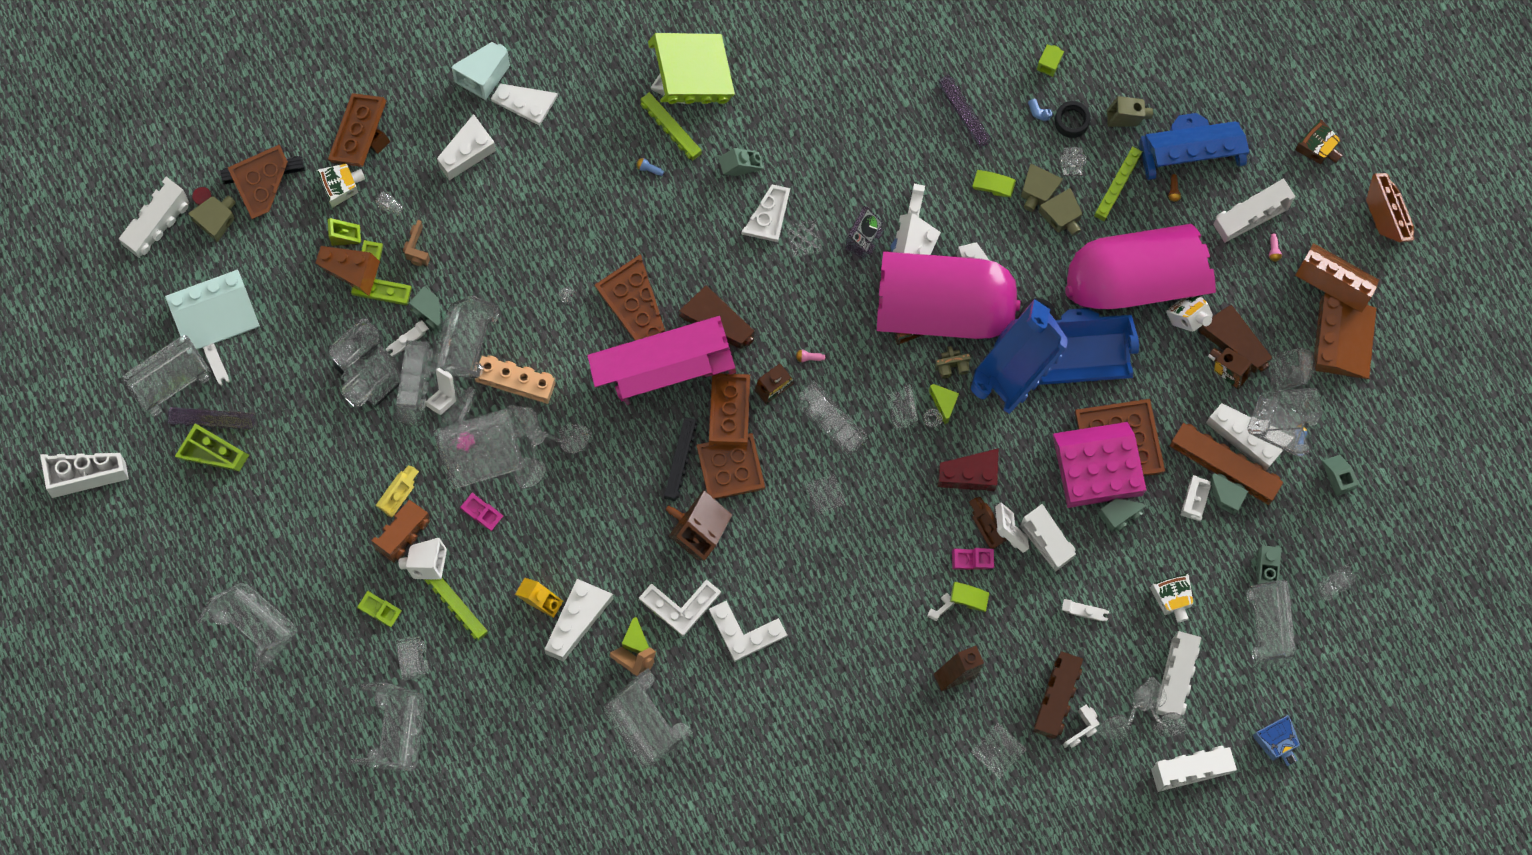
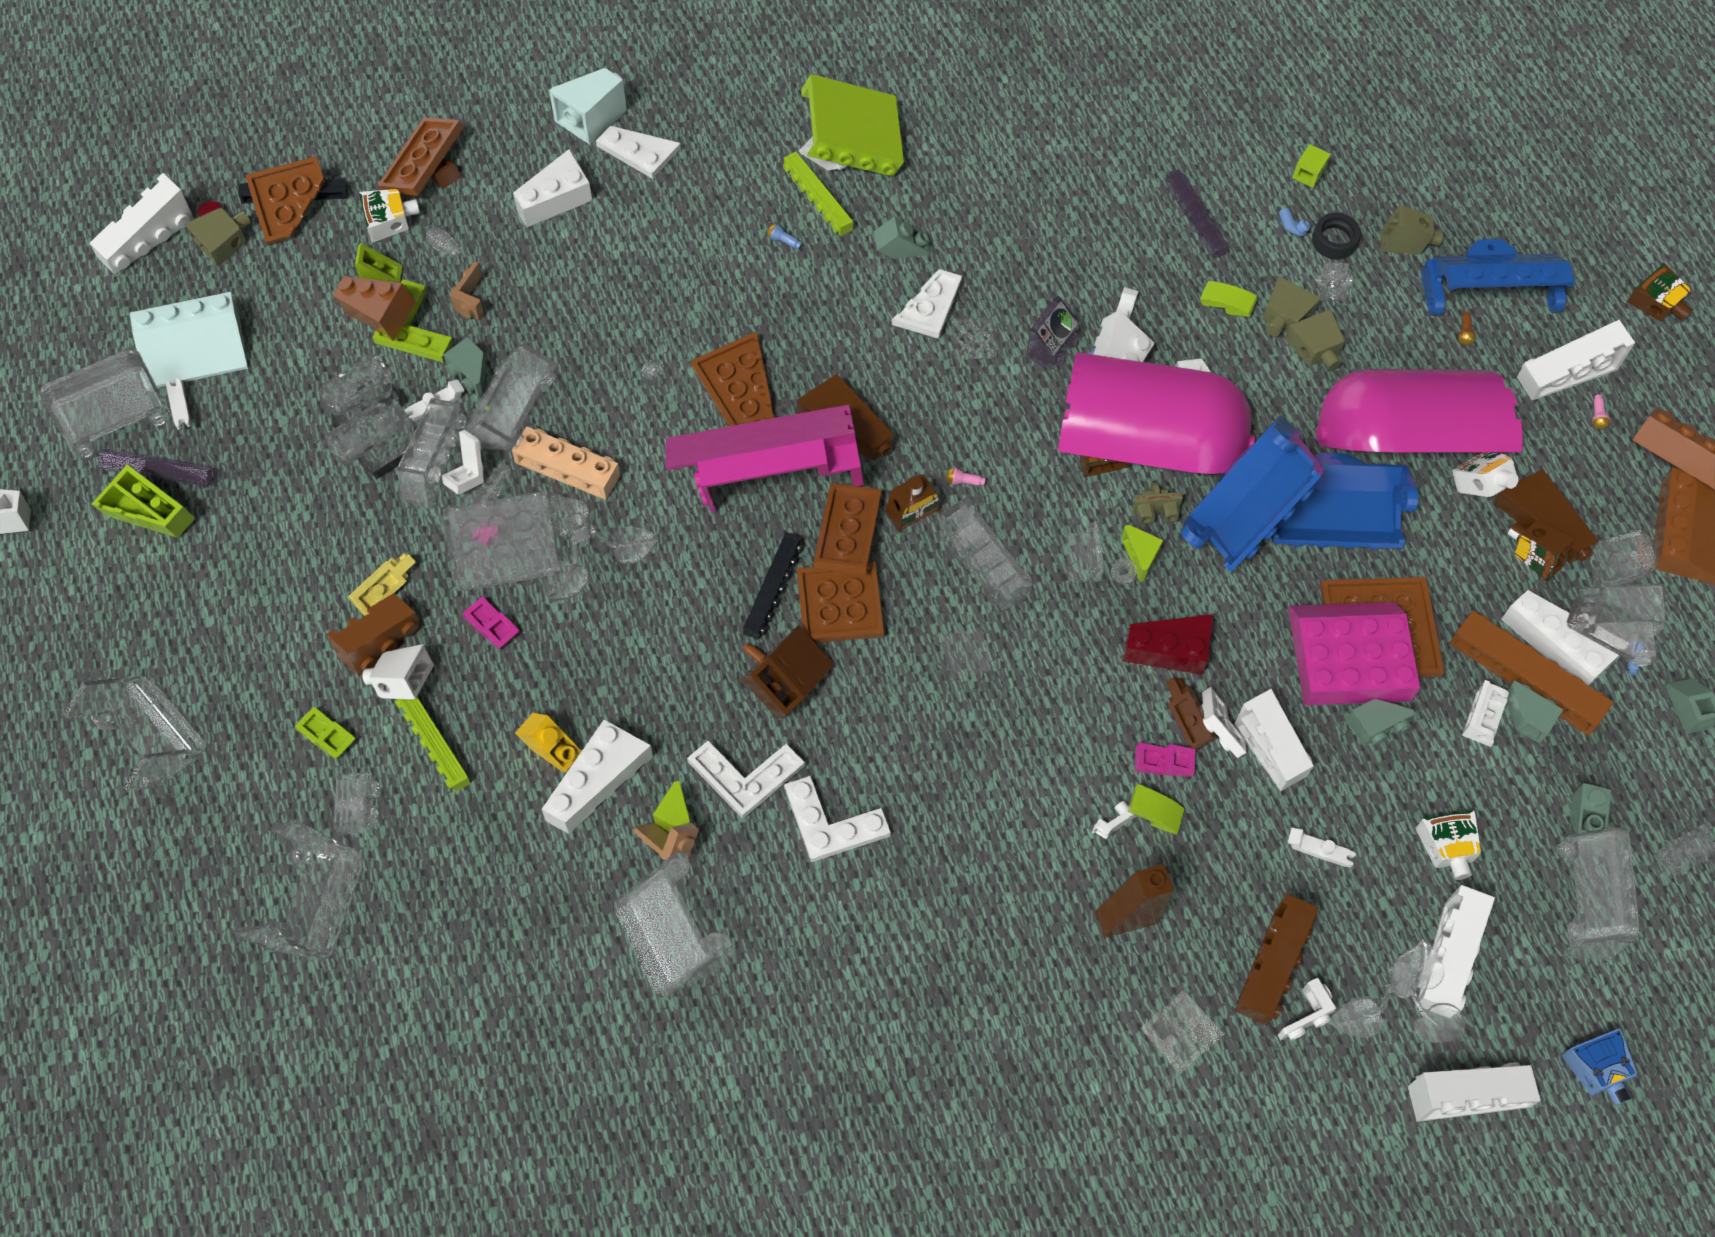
camera: 10 degrees right, 10 degrees down
(1118, 184) = (1392, 315): lime piece -> none

